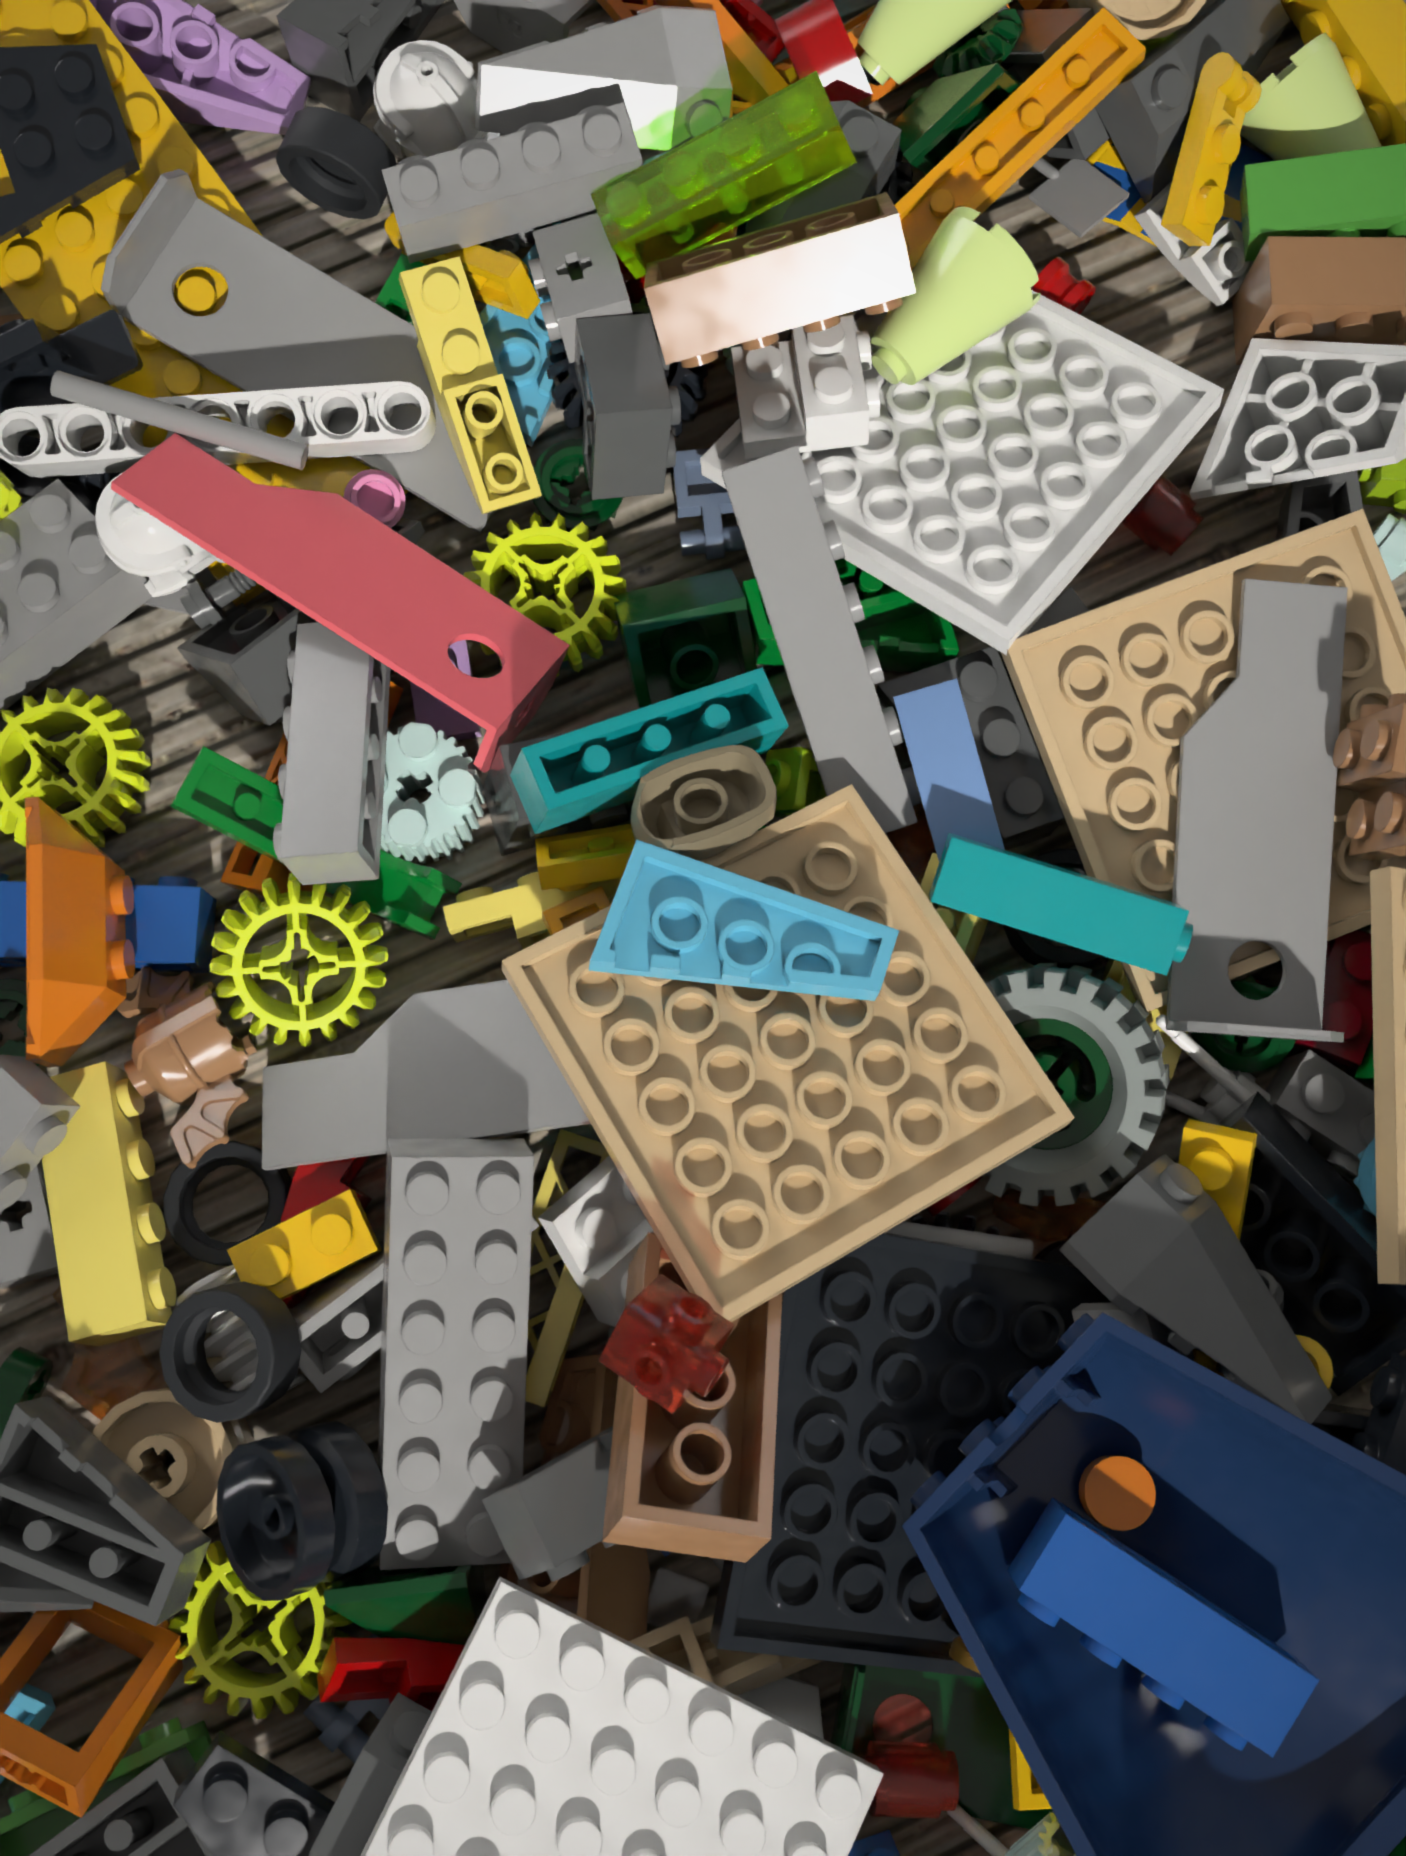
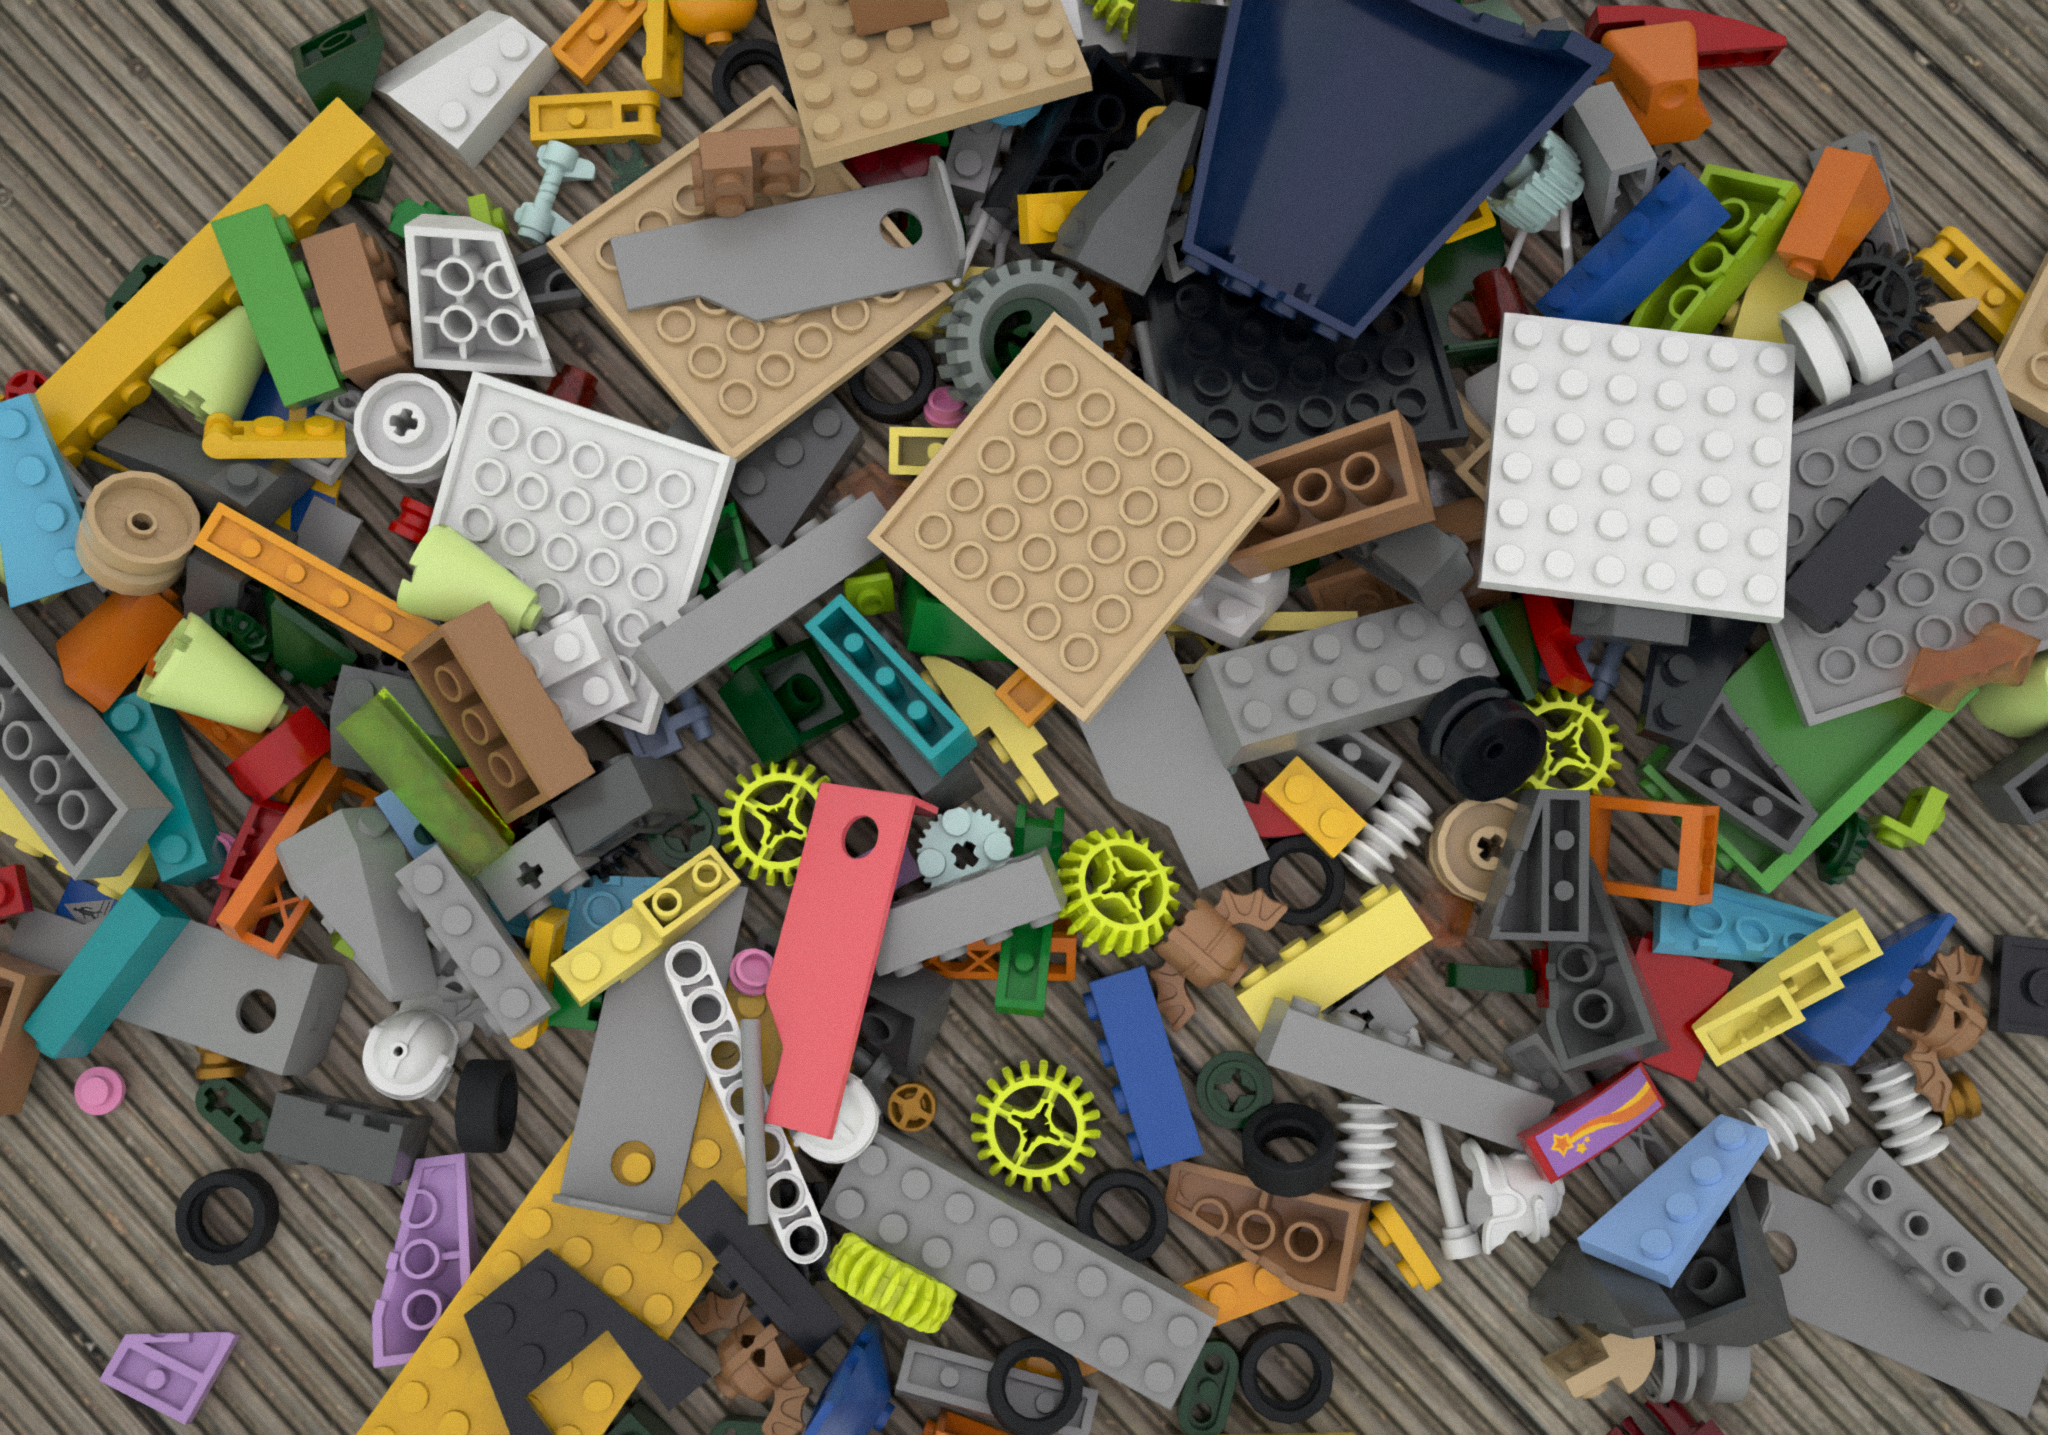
camera: 105 degrees left, 5 degrees up
(72, 935) = (1154, 1052): orange wedge -> none
(138, 625) = (908, 1113): none -> pearl gold wheel
(185, 1359) = (1432, 835): black tyre -> none
(583, 857) = (971, 697): yellow plate -> none
(668, 1344) = (1303, 510): clear red brick -> none
(704, 801) = (923, 628): dark tan piece -> none
(726, 929) = (1009, 578): medium azure wing -> none
(947, 765) = (843, 468): medium blue slope -> none
(999, 955) = (942, 410): none -> bright pink plate
(1061, 905) = (906, 369): teal brick -> none
(1117, 1492) = (1282, 216): orange tile -> none
(1161, 1628) = (1356, 166): blue brick -> none
(1181, 305) = (407, 428): none -> white wheel

